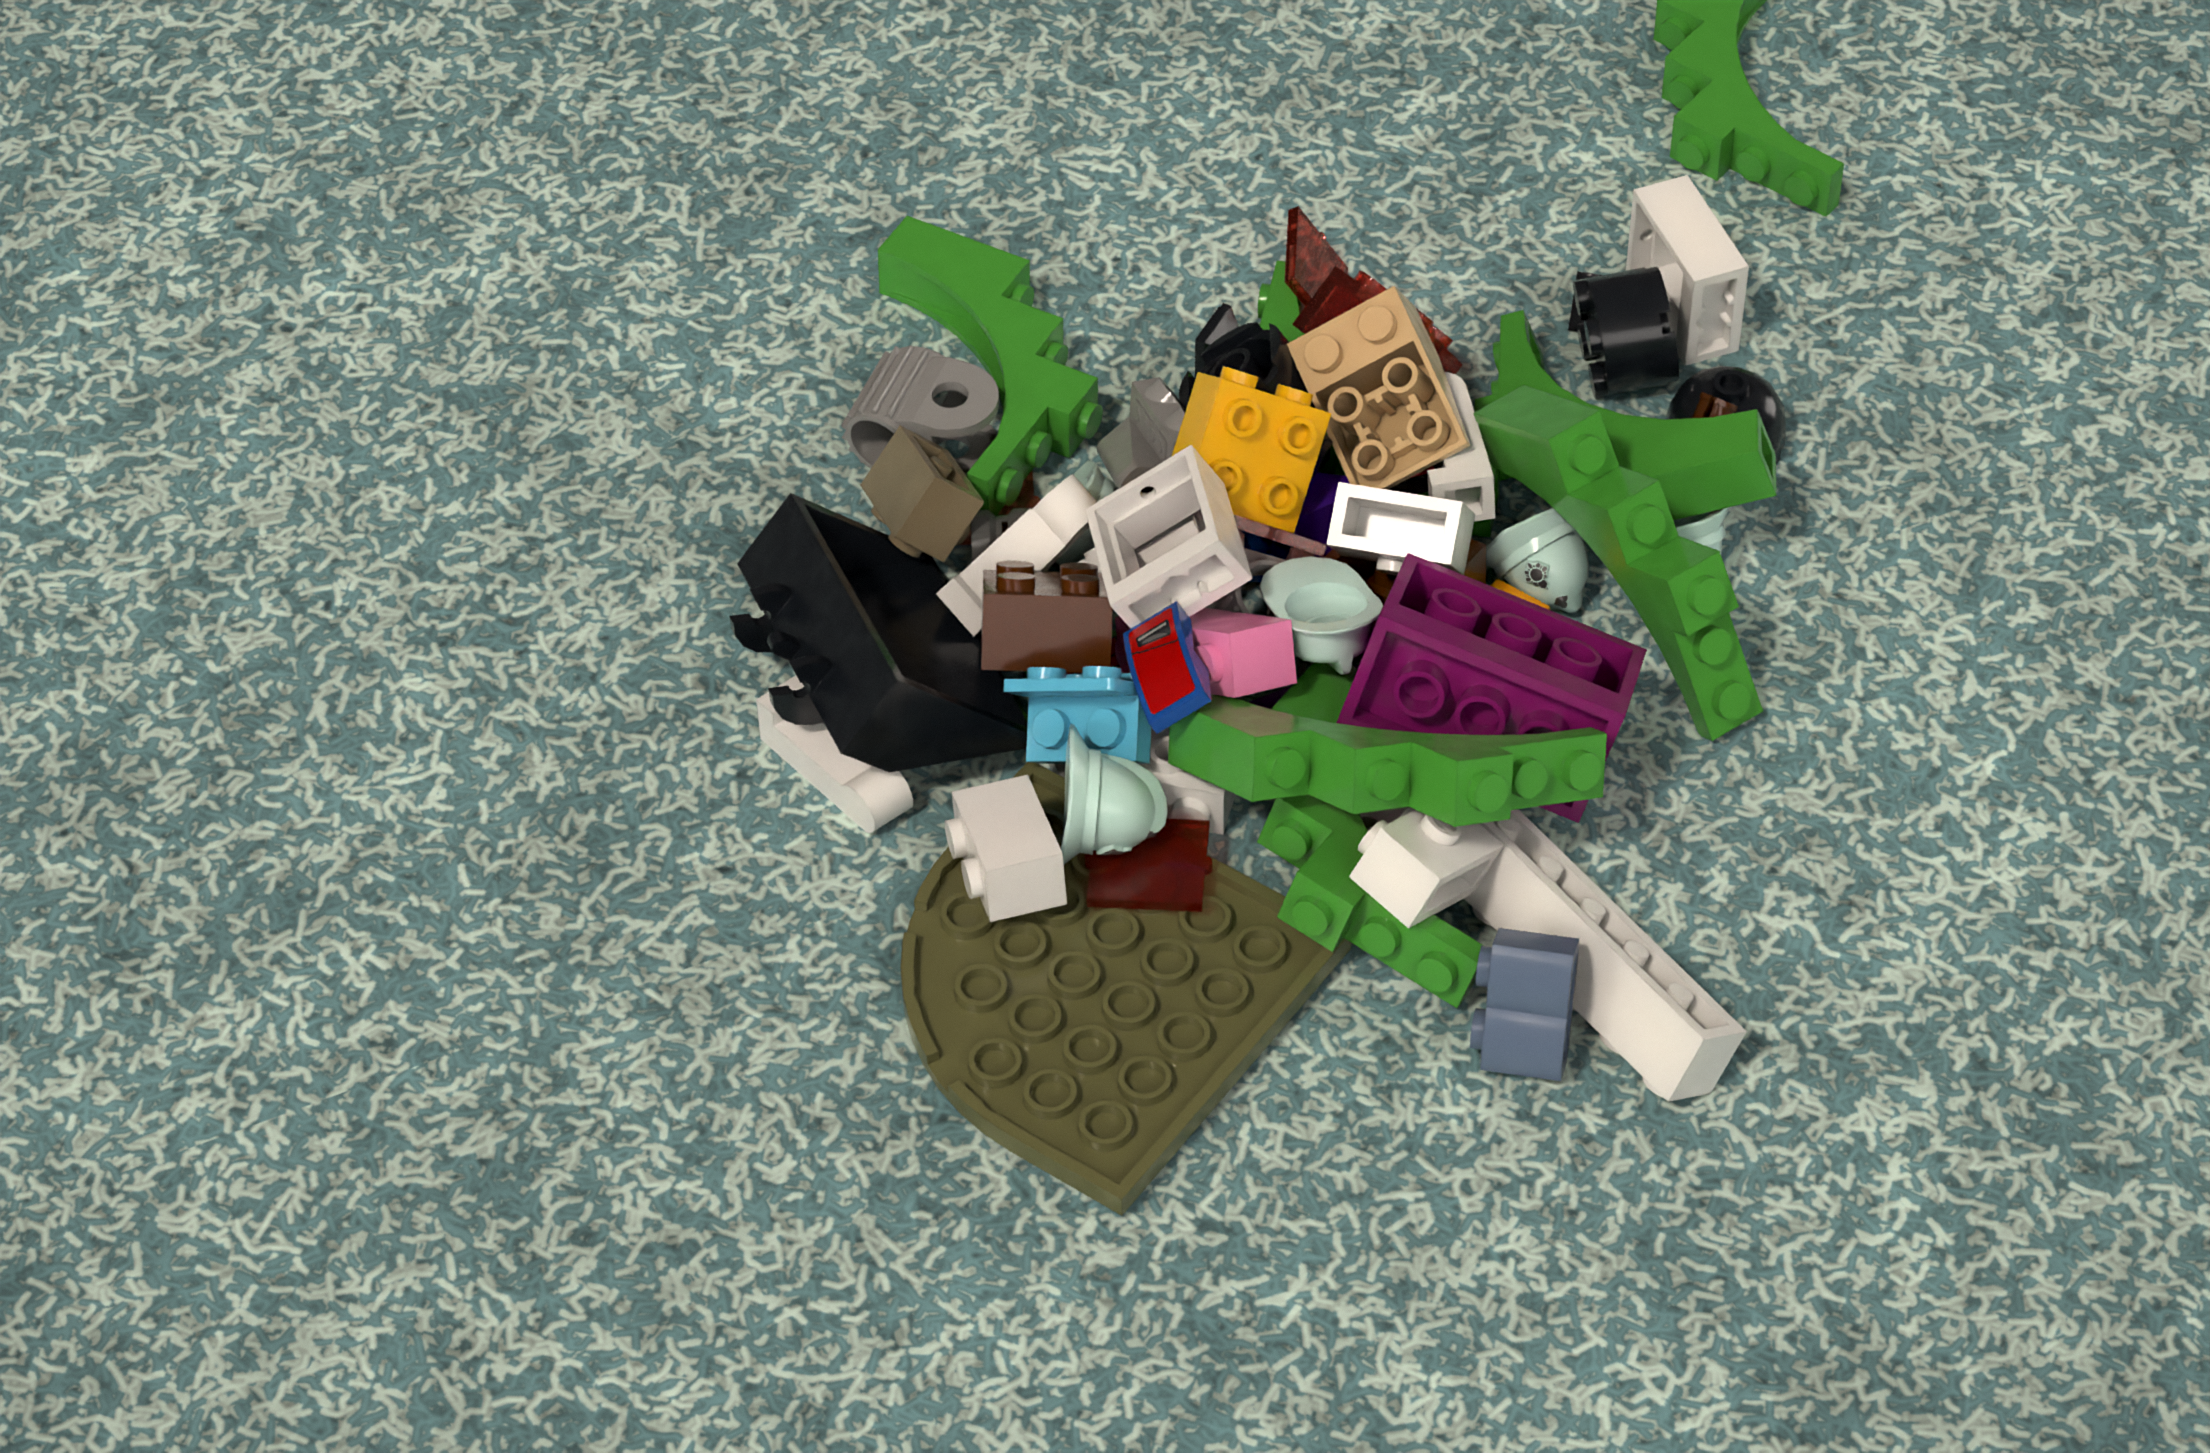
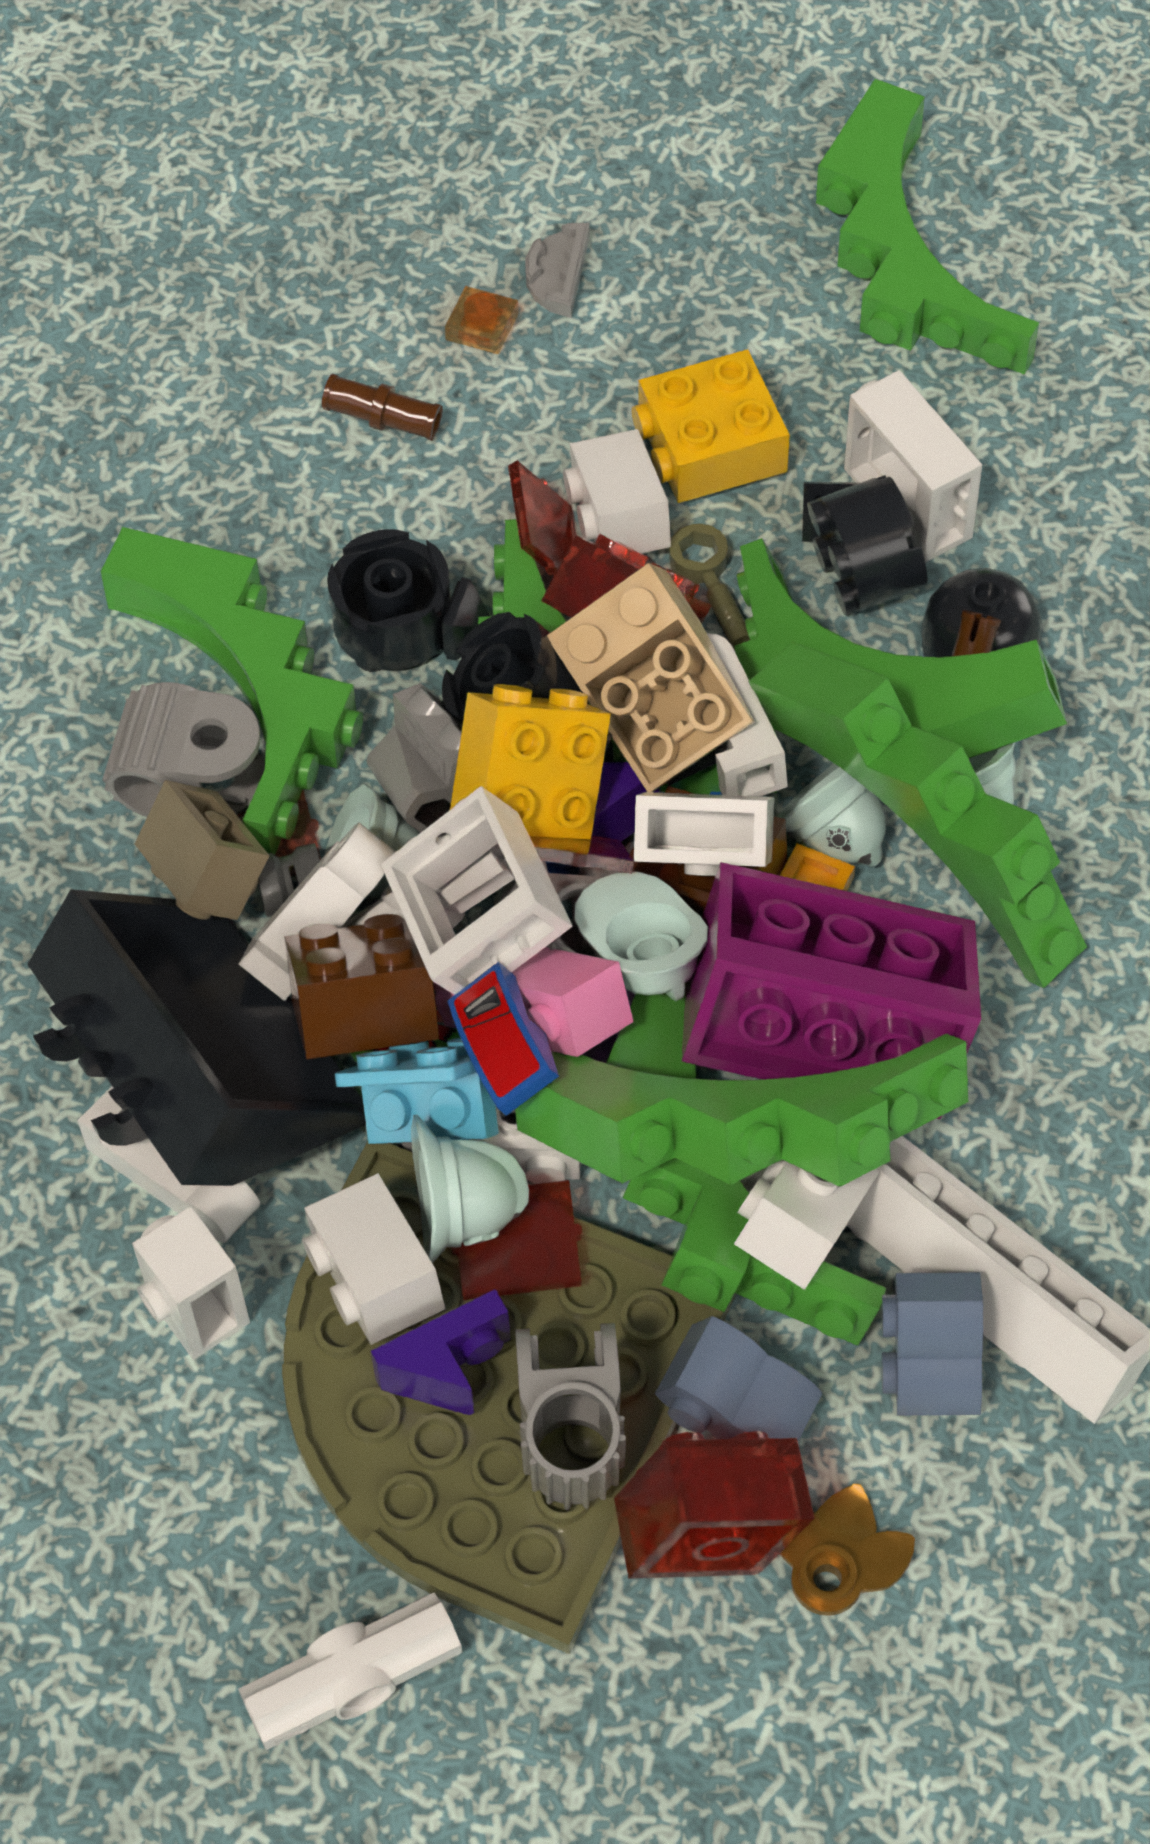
camera: 10 degrees left, 10 degrees up
(833, 846) = (190, 1282): none -> white brick
(913, 1190) = (350, 1670): none -> white piece
(1045, 937) = (428, 1359): none -> dark purple slope
(1148, 315) = (389, 600): none -> black brick
(1172, 1053) = (547, 1409): none -> light grey piece
(1181, 154) = (382, 407): none -> reddish brown pin
(1280, 1097) = (713, 1506): none -> clear red brick
(1296, 95) = (481, 320): none -> clear orange plate
(1329, 1020) = (733, 1387): none -> sand blue brick
(1381, 59) = (556, 267): none -> light grey tile
(1395, 249) = (618, 492): none -> white brick
(1402, 1166) = (847, 1545): none -> pearl gold plate
(1470, 340) = (708, 573): none -> olive piece
(1498, 212) = (711, 426): none -> yellow brick

